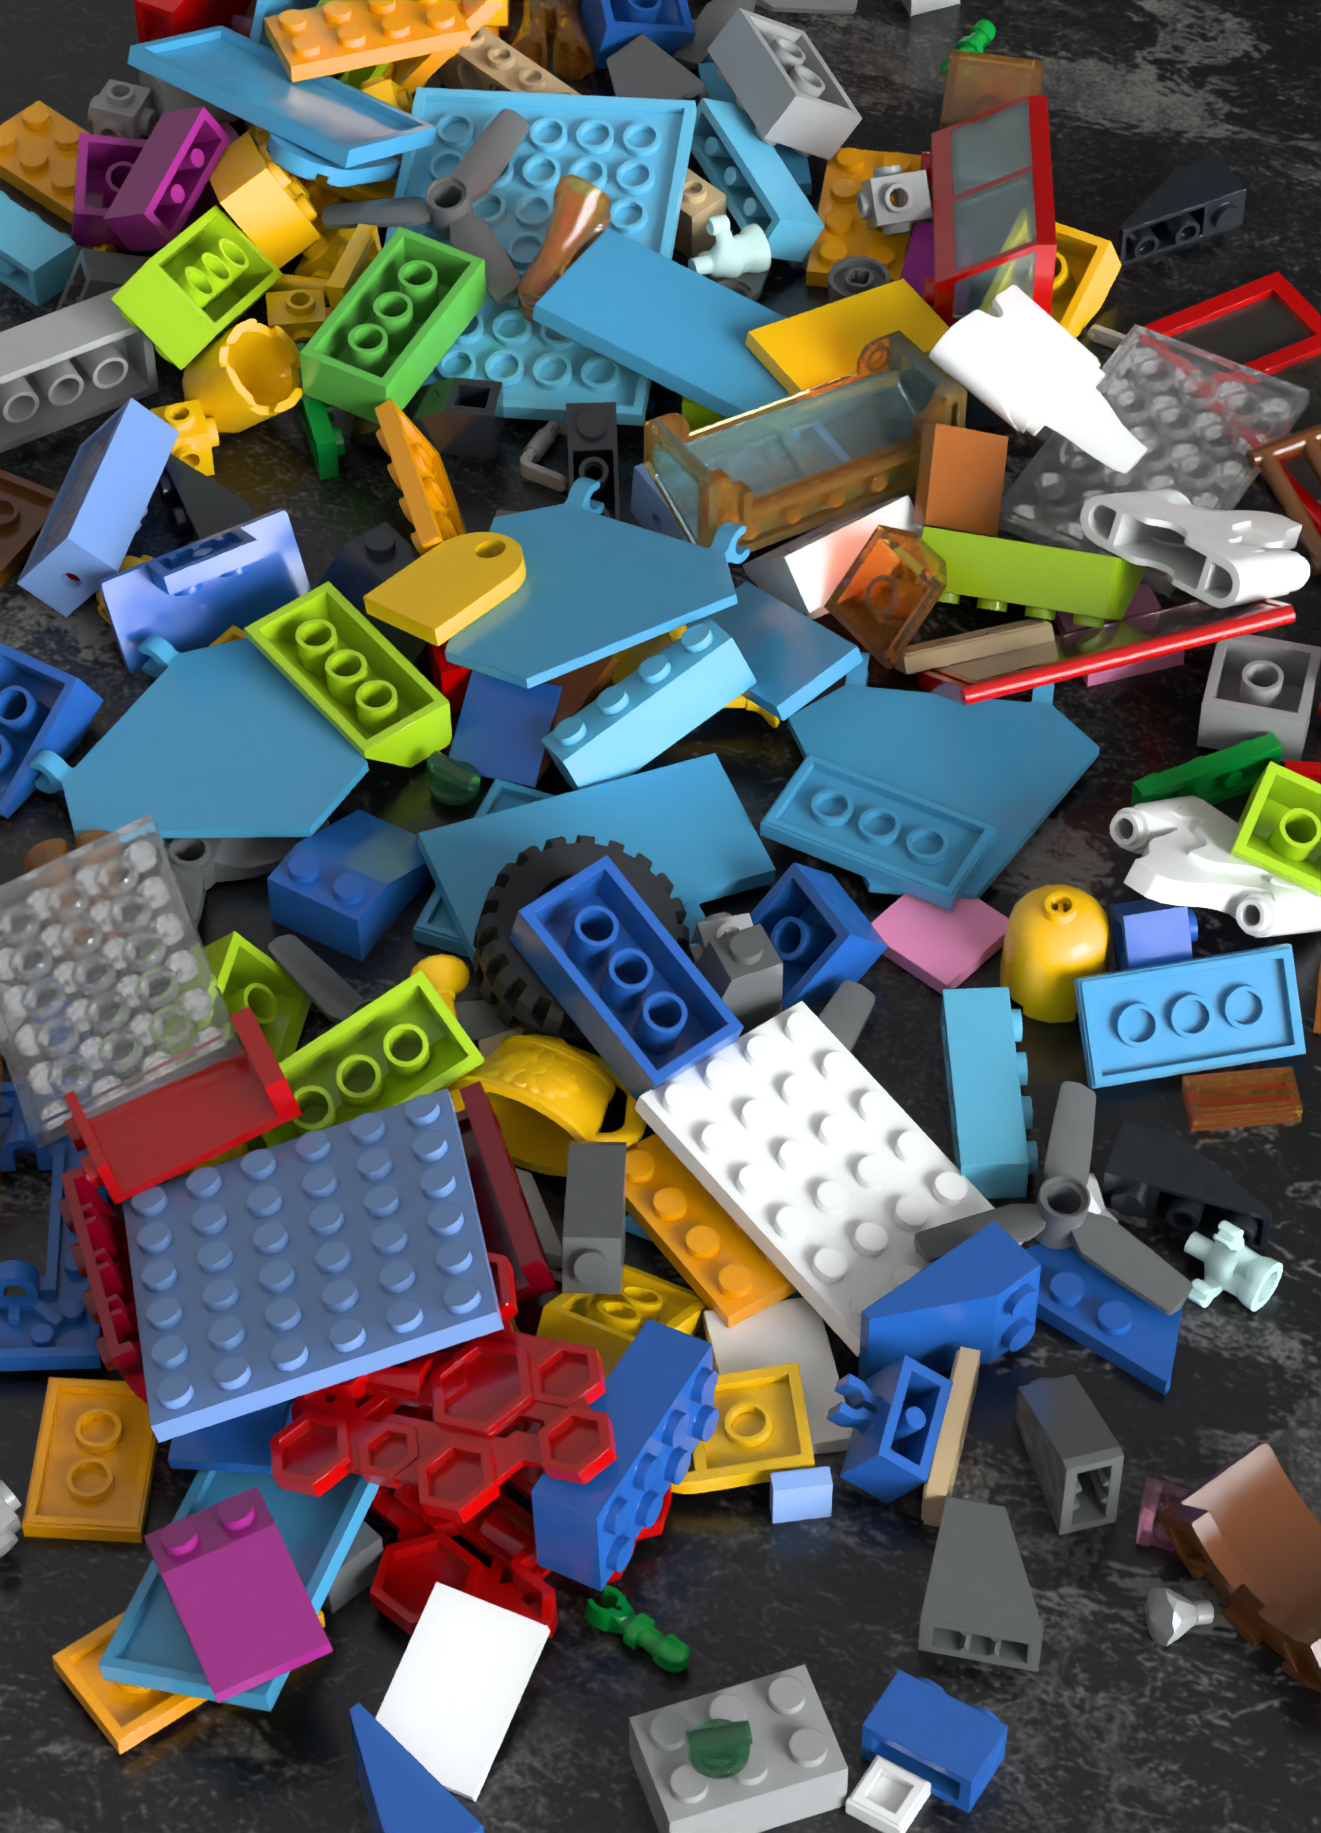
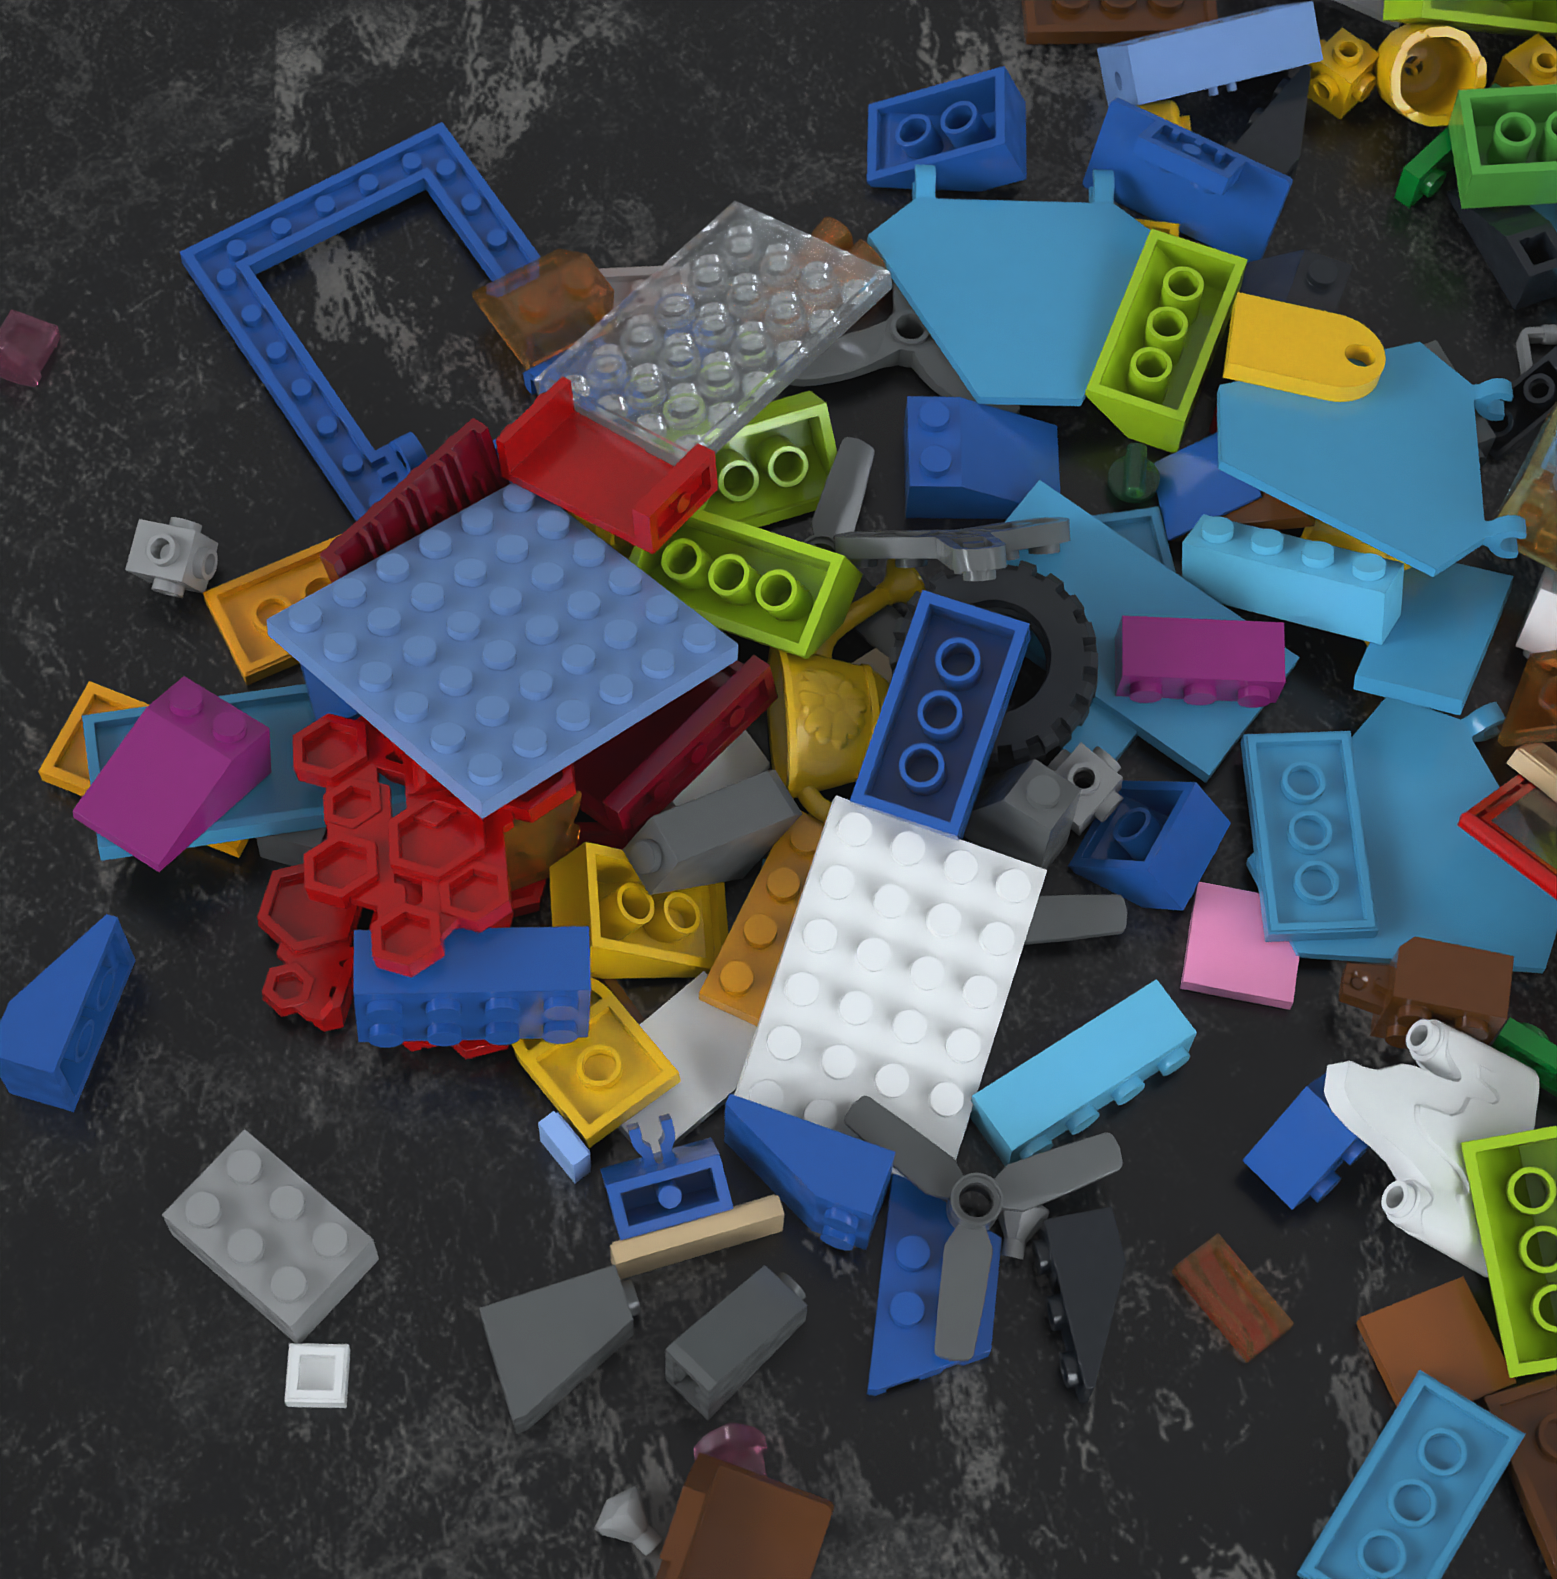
camera: 55 degrees right, 15 degrees up
(421, 477) = (1418, 271): light orange plate -> none
(461, 1686) = (216, 986): white tile -> none
(478, 871) = (967, 551): none -> dark grey piece
(638, 1630) = (364, 1095): green piece -> none
(682, 803) = (1199, 660): none -> magenta brick
(719, 1747) = (233, 1212): clear green plate -> none
(935, 1738) = (383, 1383): blue brick -> none
(1047, 943) = (1256, 1064): yellow cylinder -> none
(1076, 812) = (1430, 982): none -> reddish brown hinge
(1189, 1015) = (1276, 1204): tile -> none
(1232, 1268) = (1027, 1385): light aqua piece -> none

